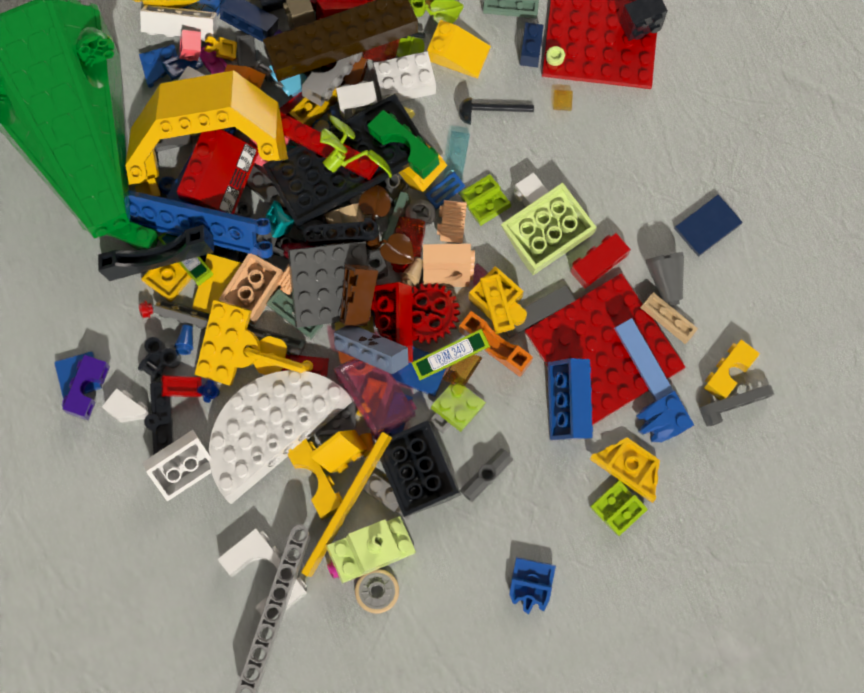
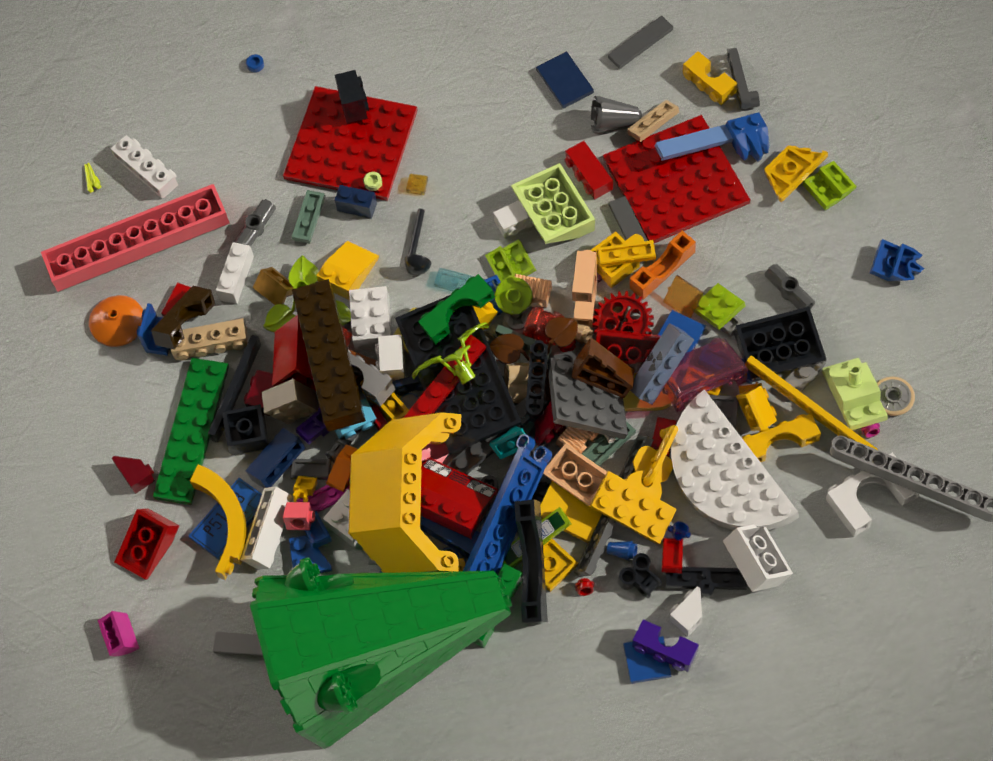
camera: 75 degrees left, 10 degrees down
(440, 203) = (513, 295): none -> lime tile
(451, 354) = (670, 297): tile -> none
(570, 399) = (725, 208): blue slope -> none
(768, 296) = (640, 42): none -> dark grey tile

